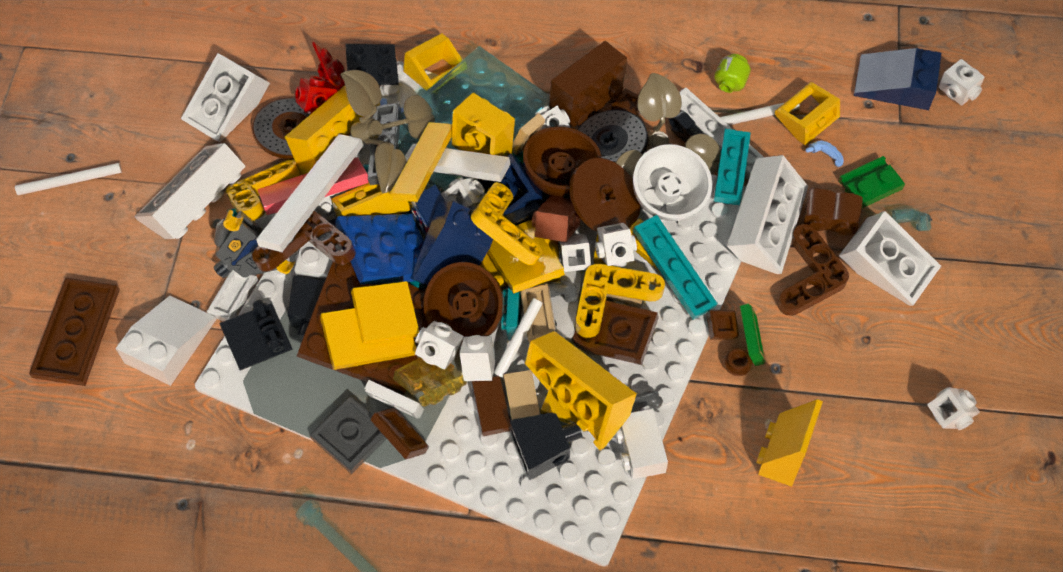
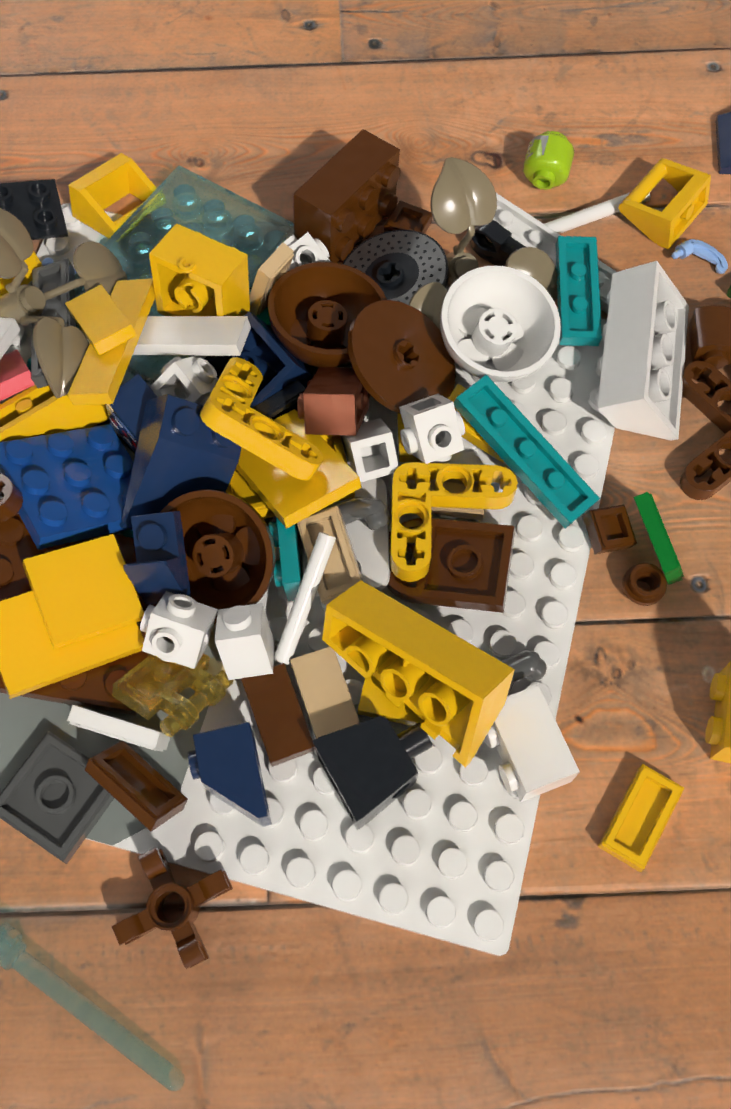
camera: 10 degrees left, 5 degrees up
(416, 147) = (100, 319): none -> yellow tile
(432, 499) = (183, 930): none -> reddish brown pin
(433, 298) = (159, 556): none -> dark blue slope
(458, 432) = (231, 770): none -> dark blue slope
(705, 501) = (641, 817): none -> yellow tile

